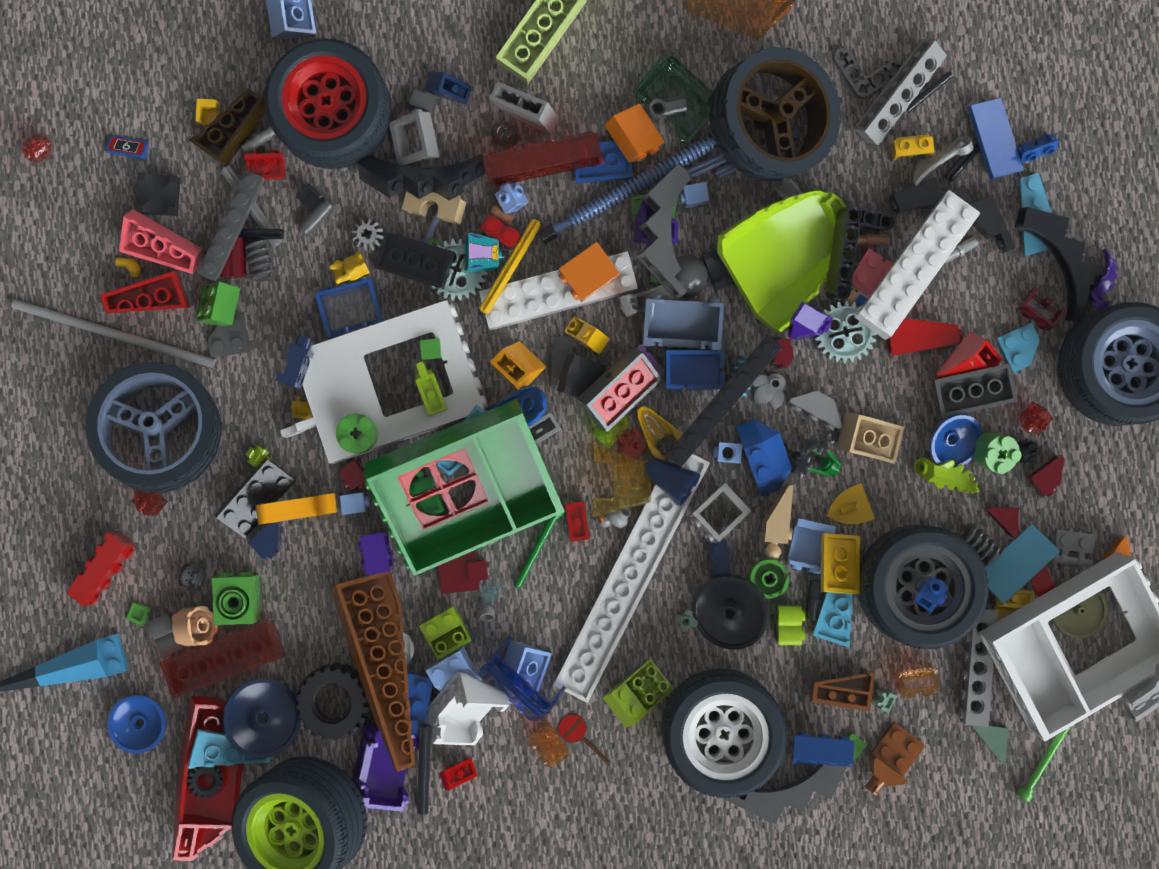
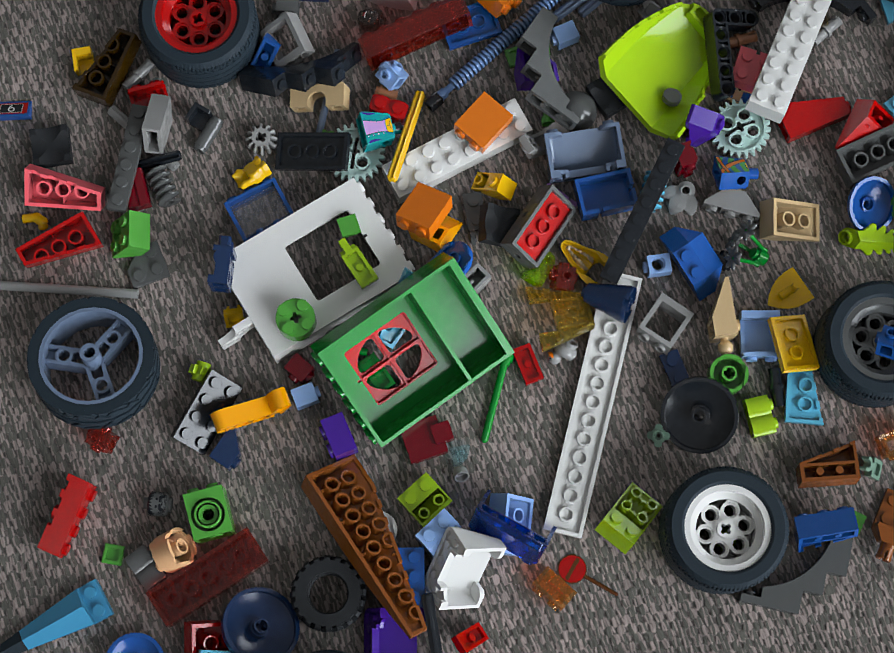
camera: 15 degrees left, 10 degrees down
(265, 197) = (157, 124): none -> light grey brick
(390, 146) = (266, 52): none -> blue slope
(509, 349) = (424, 211): none -> orange brick
(785, 285) = (671, 97): none -> dark grey tile
(826, 377) = (732, 173): none -> blue torso

